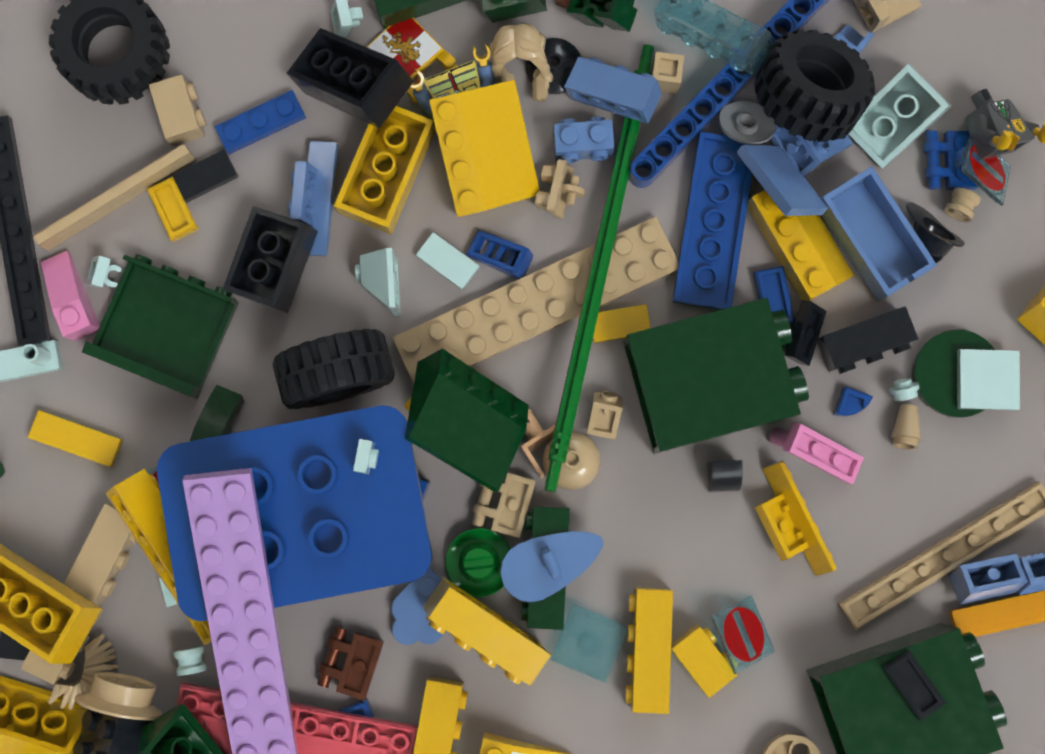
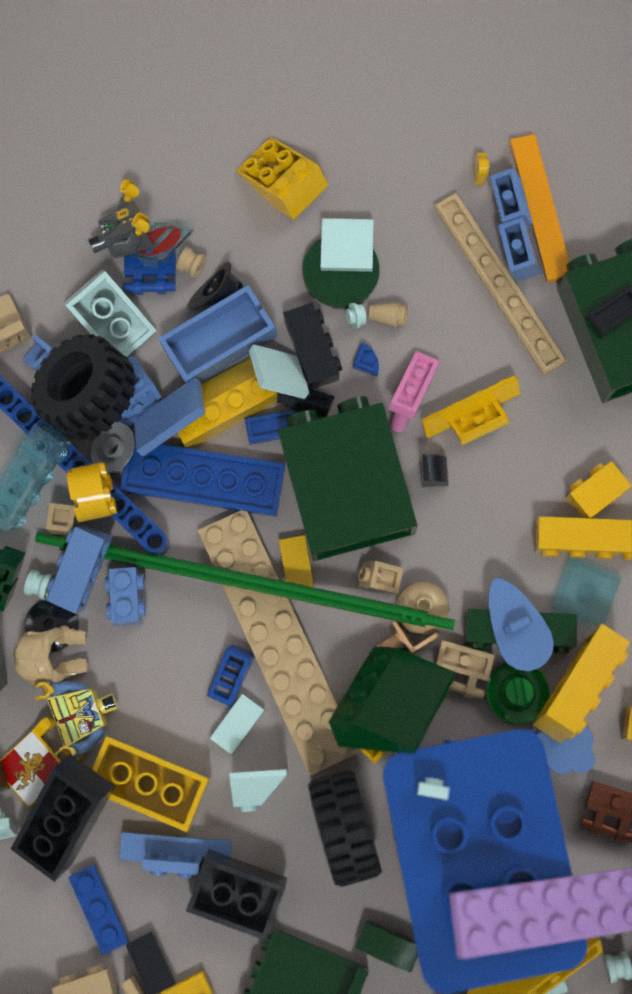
camera: 85 degrees left, 5 degrees down
(485, 147) = (132, 688): yellow slope -> none
(563, 188) = (159, 617): tan hips -> none
(597, 47) = (37, 584): none -> light aqua wheel
(695, 95) = (91, 491): none -> yellow brick
(742, 634) = (574, 456): piece -> none
(835, 300) = (278, 371): none -> light aqua tile

